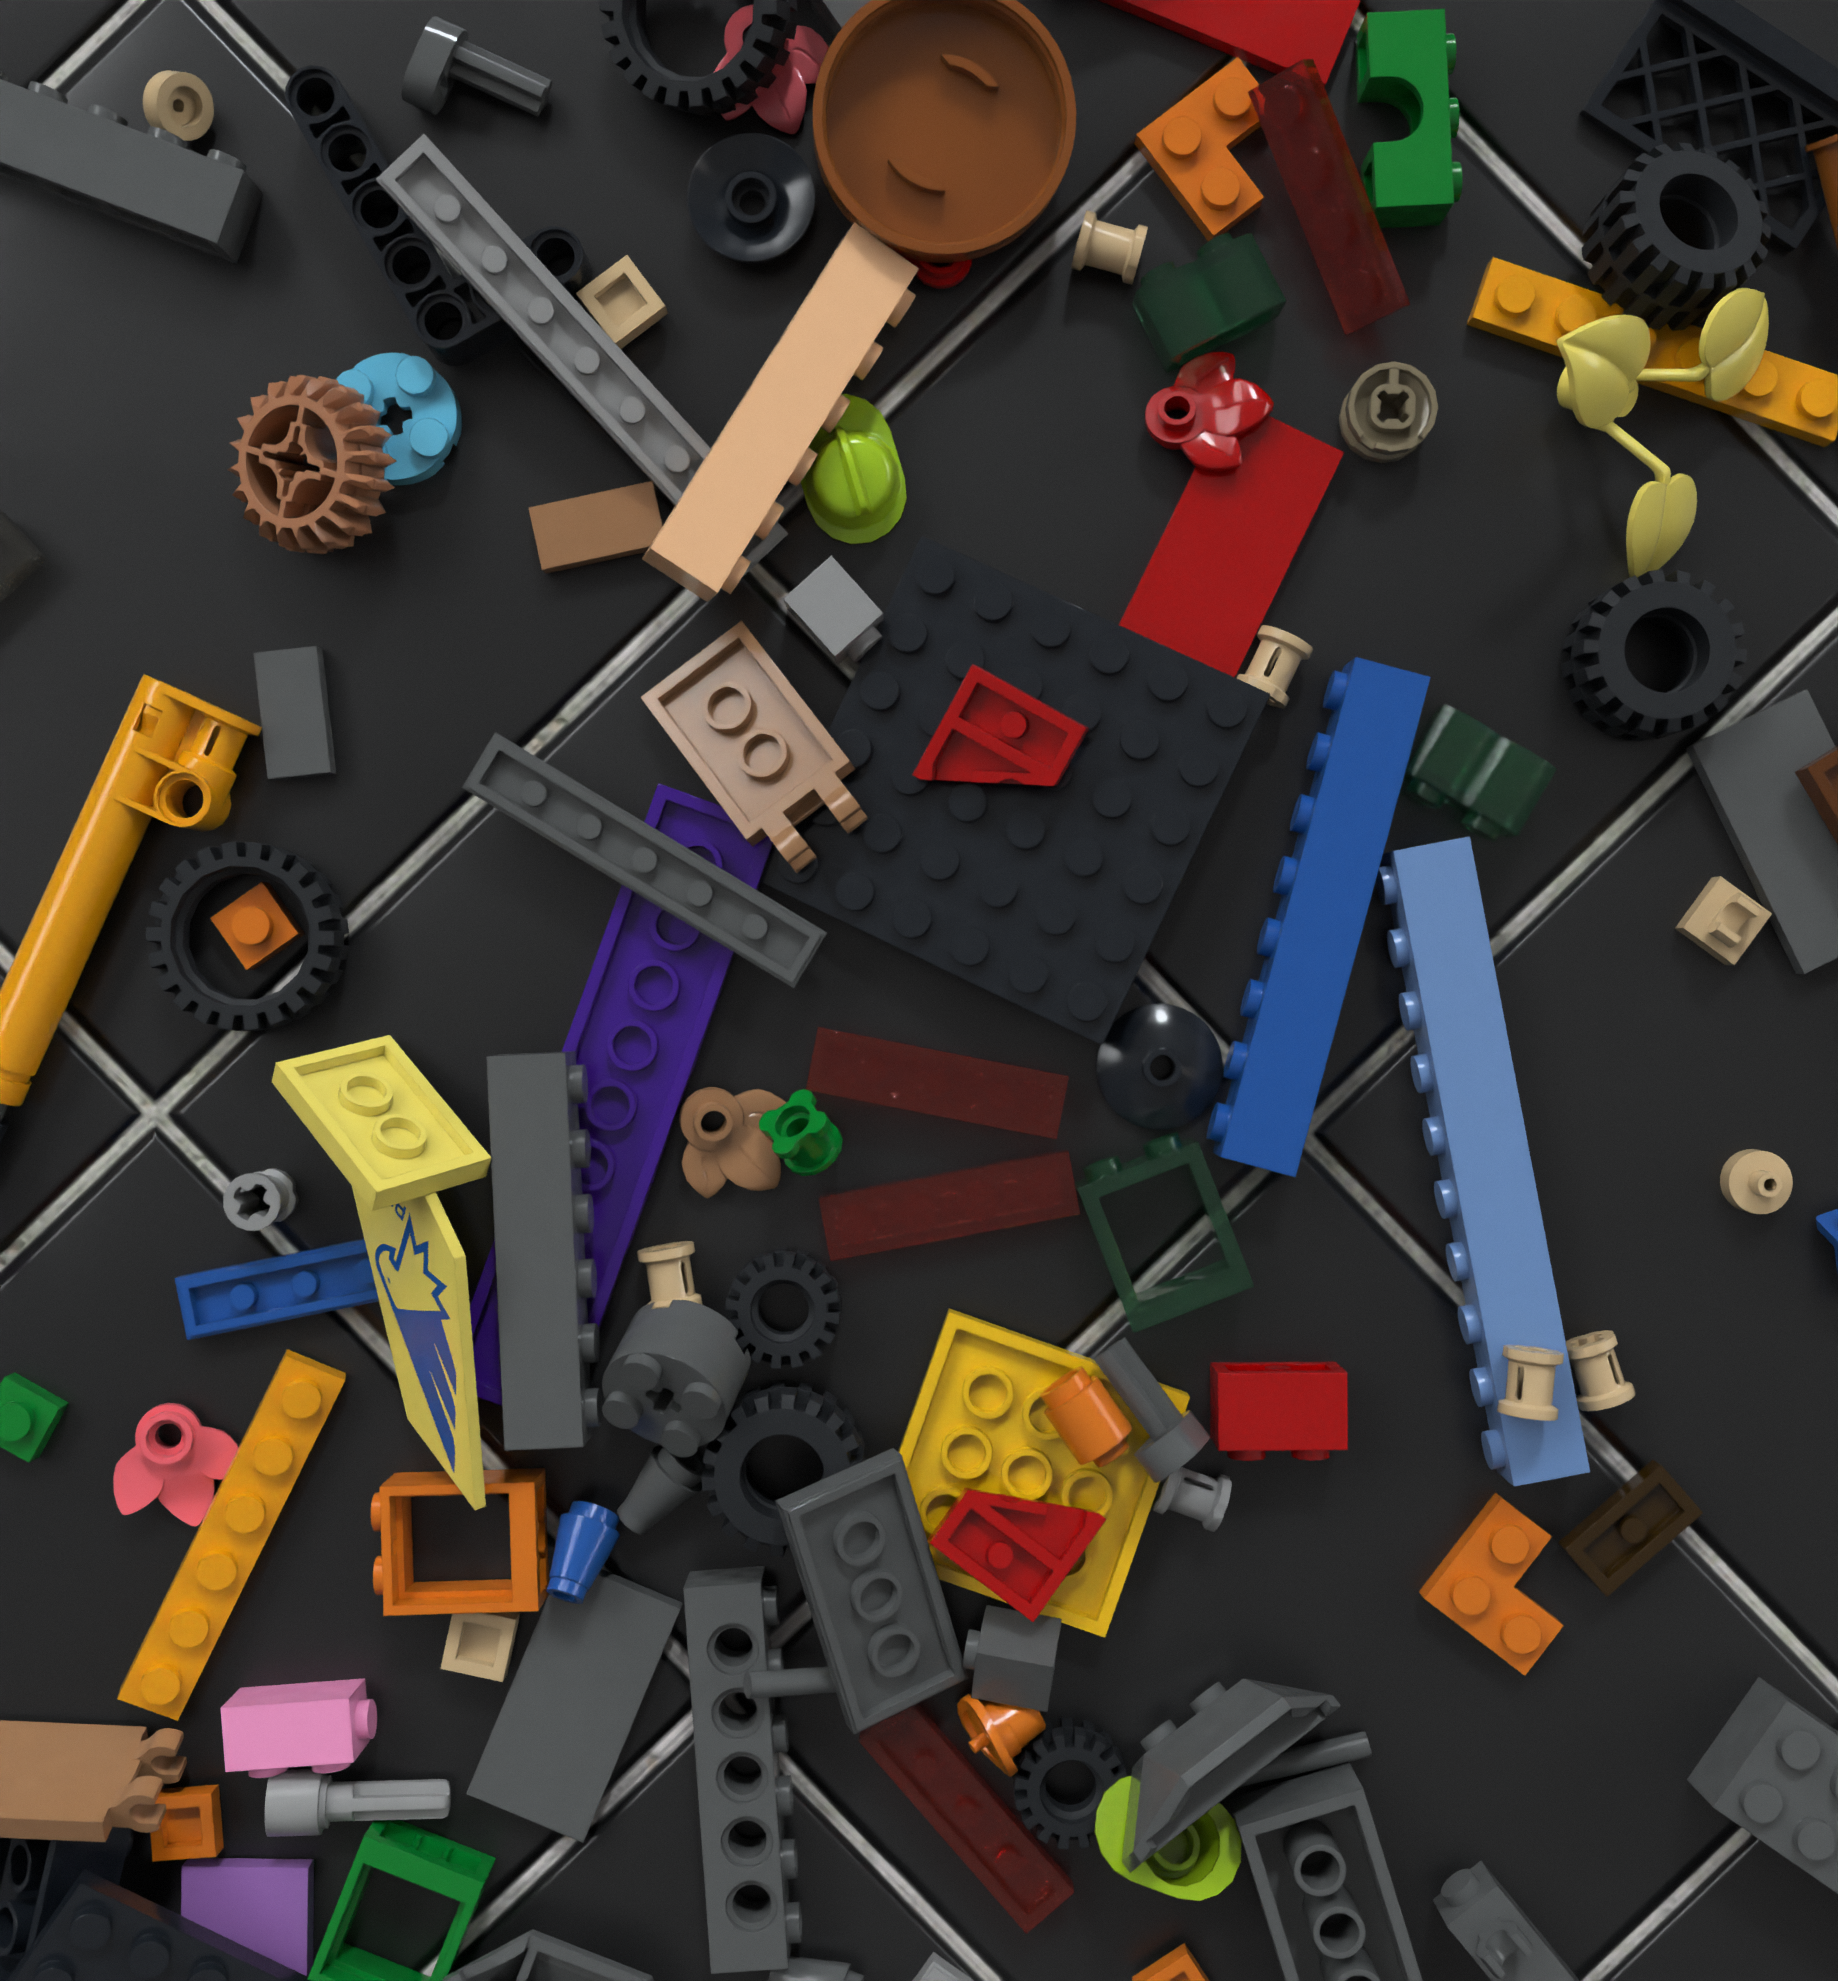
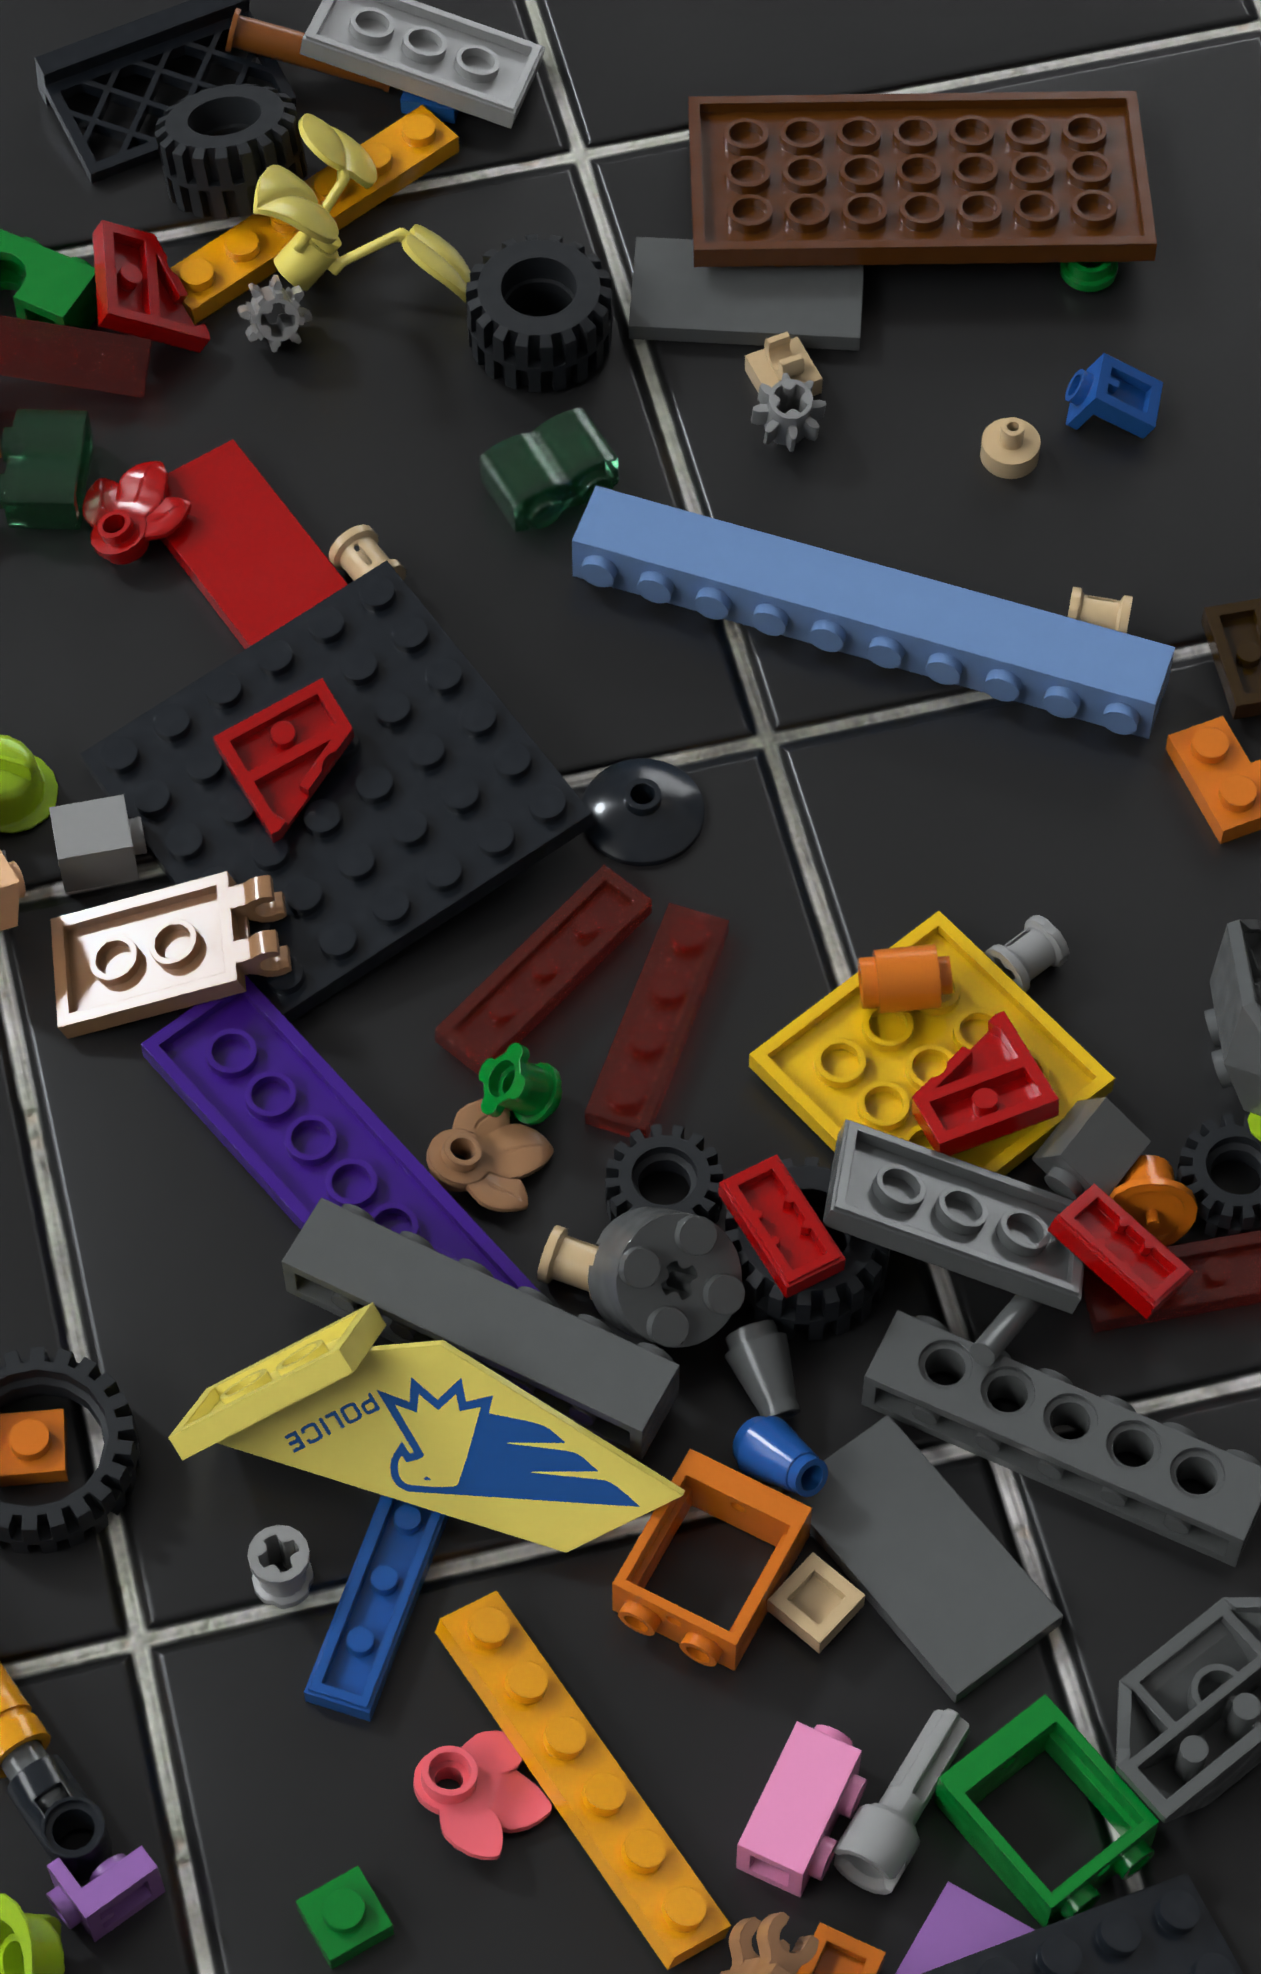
camera: 55 degrees left, 30 degrees down
(644, 860) = (197, 1081): dark grey tile -> none
(757, 1464) = (781, 1226): none -> red plate
(922, 1741) = (1120, 1251): none -> red plate
(1173, 1435) = (957, 925): dark grey piece -> none
(1188, 1290) = (776, 909): clear green window -> none
(1278, 1409) = (989, 853): red brick -> none
(1319, 915) = (597, 632): blue brick -> none
(1388, 412) = (225, 395): dark tan wheel -> none
(1457, 256) = (139, 289): none -> red wing
(1508, 401) = (262, 304): none -> light grey gear
(1530, 1382) = (1067, 640): tan bush -> none
(1679, 973) = (788, 412): none -> light grey gear

